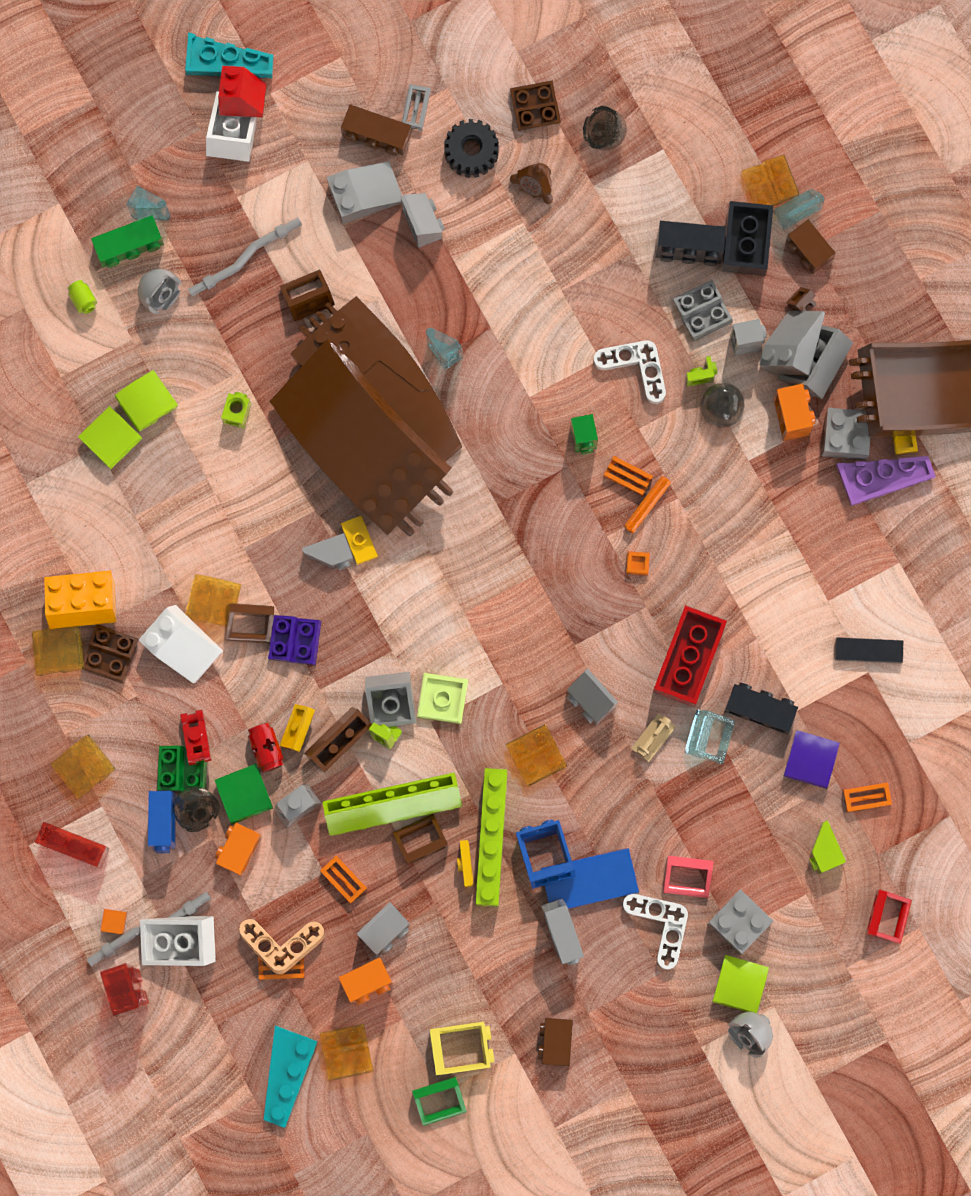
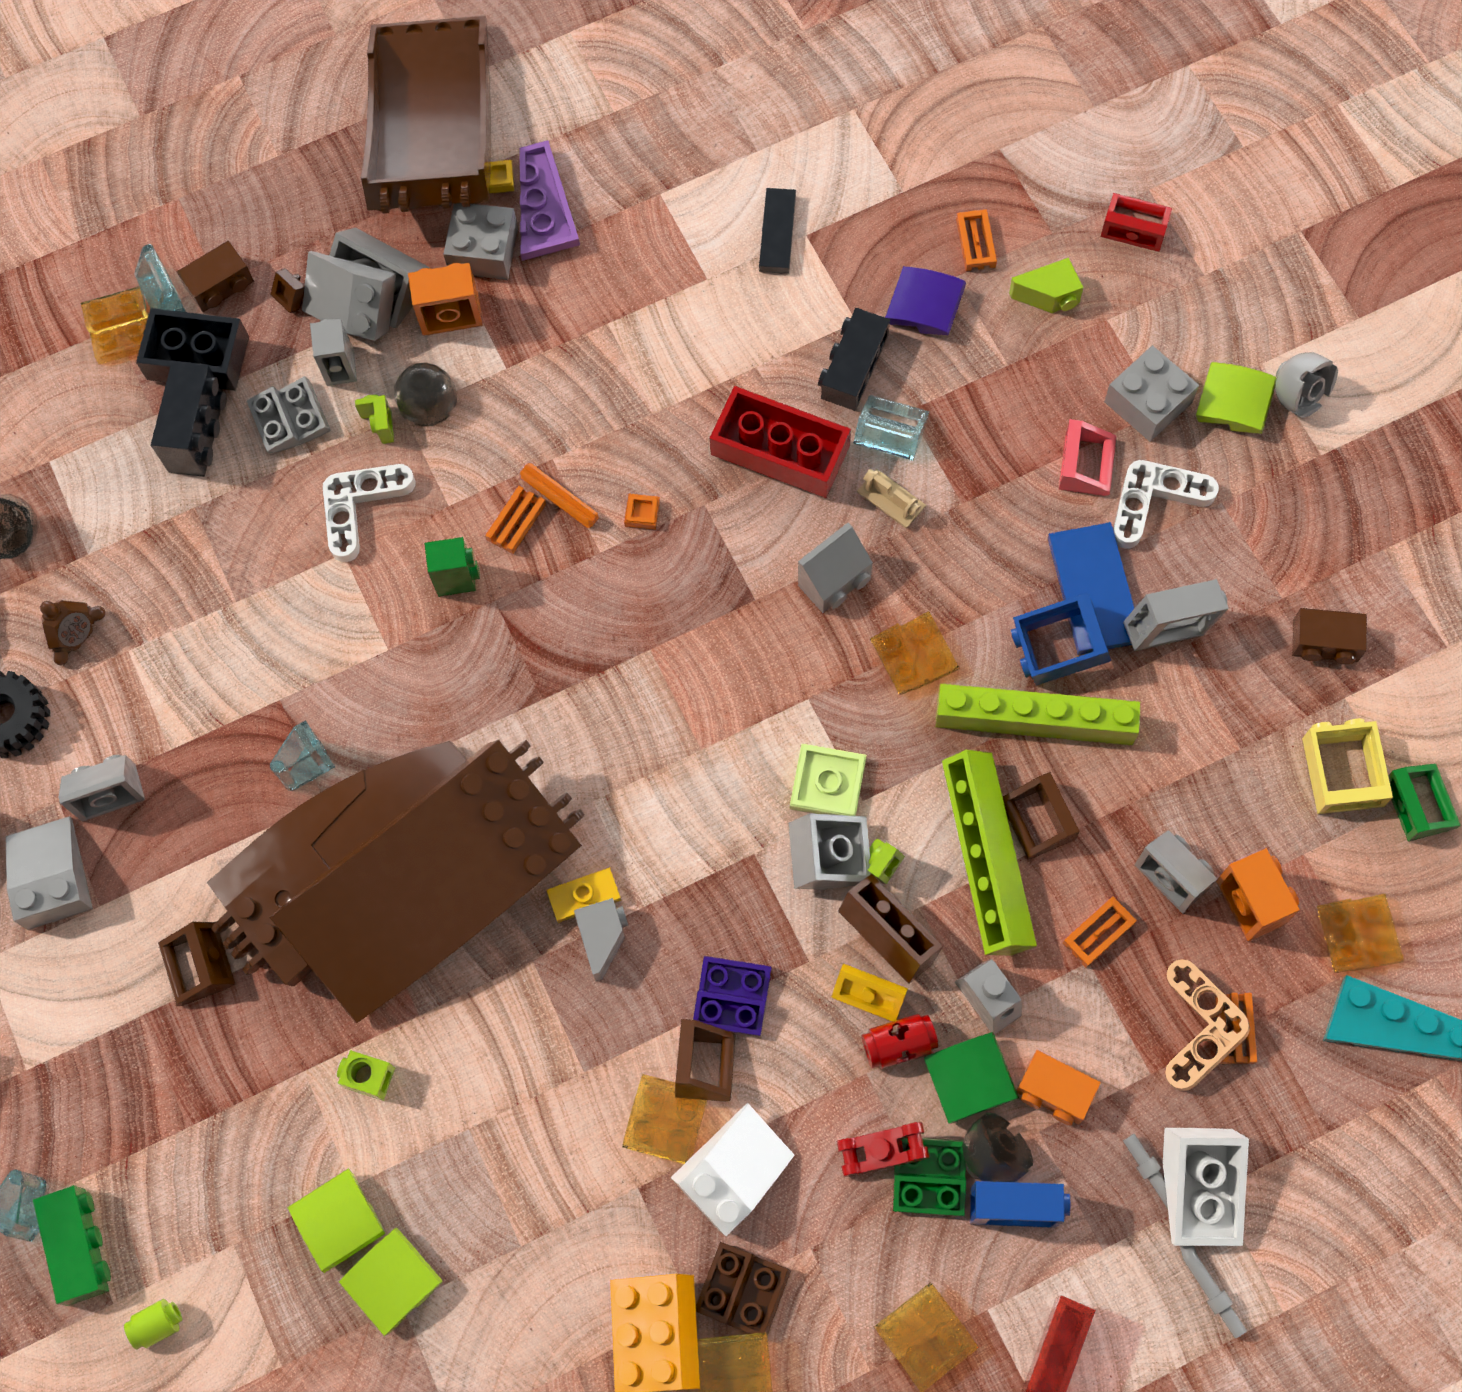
camera: 85 degrees left, 10 degrees down
(113, 921) = (1173, 1292): orange tile -> none
(124, 990) = (1294, 1266): clear red brick -> none
(158, 290) = (156, 1195): light grey cylinder -> none
(210, 281) = (155, 1112): light grey bar -> none
(464, 863) = (1075, 752): yellow plate -> none

